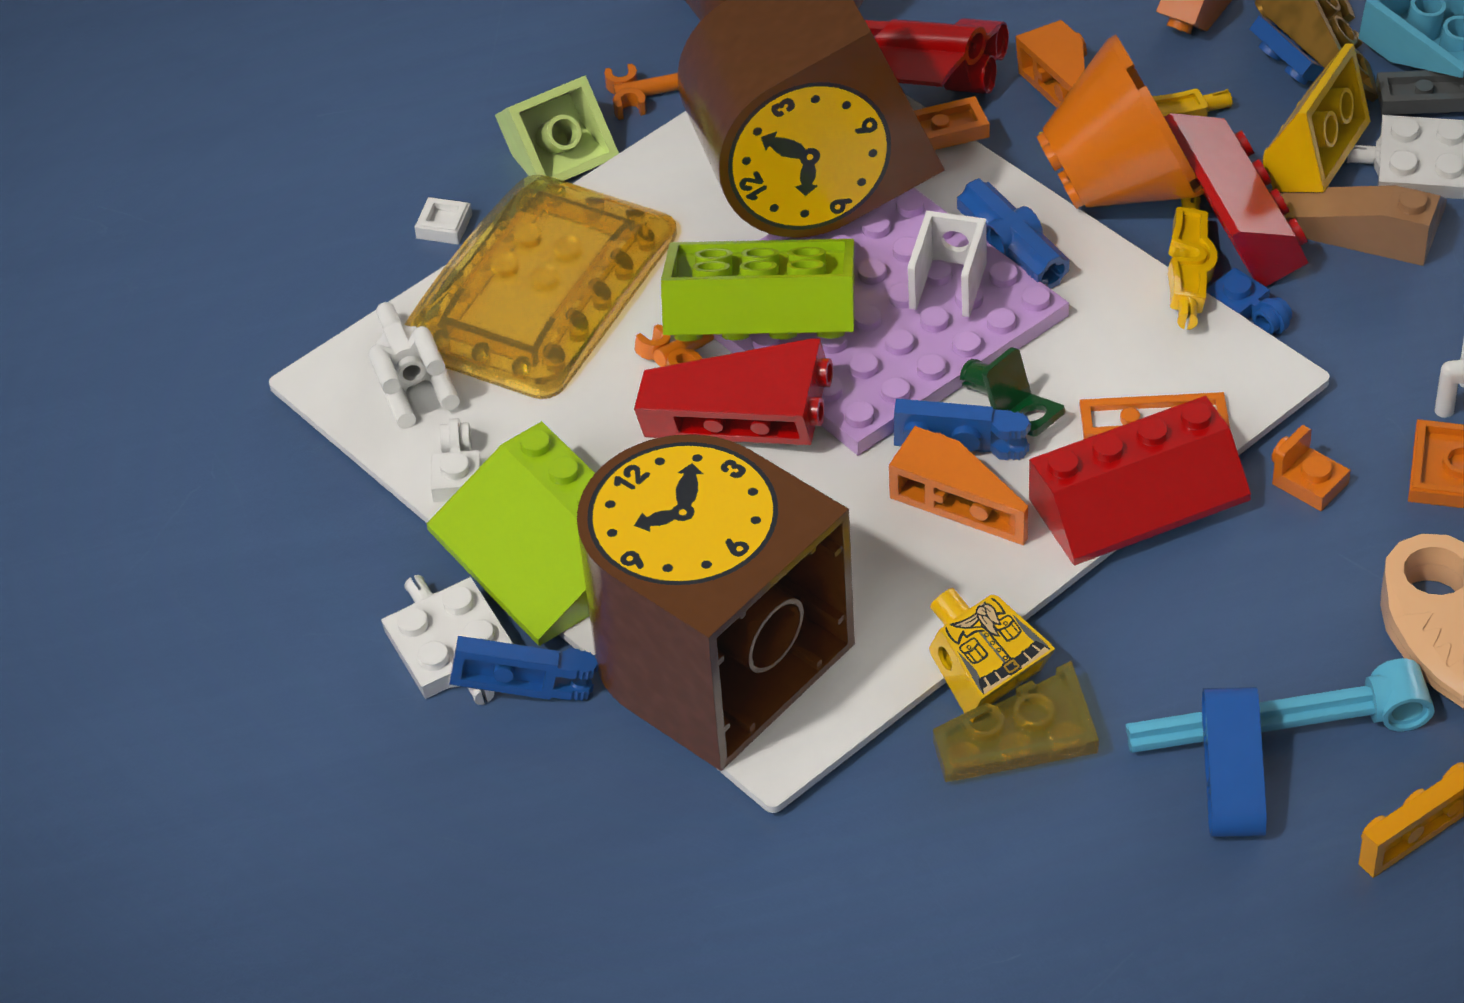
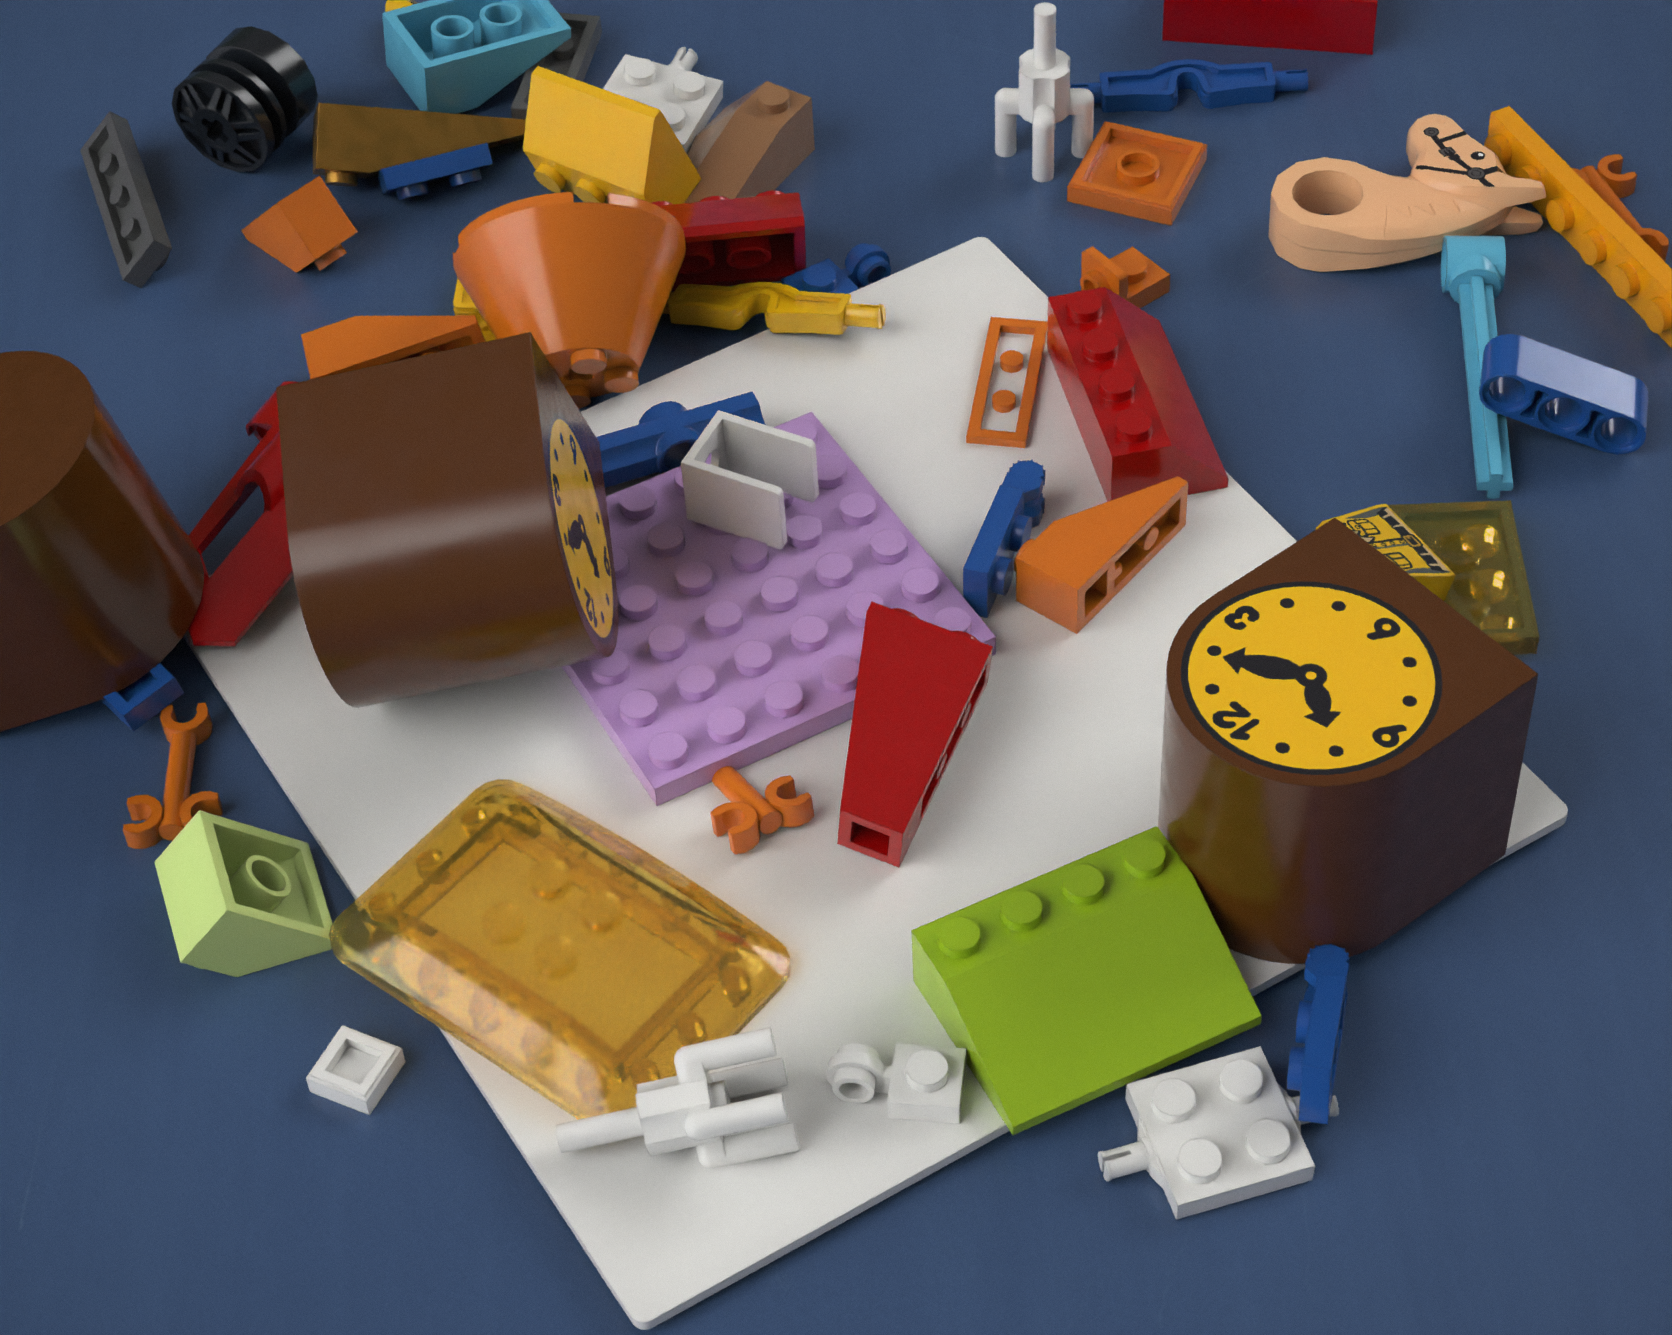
camera: 80 degrees left, 0 degrees up
(758, 288) = (713, 671): lime slope -> none
(1009, 388) = (950, 483): dark green bracket -> none

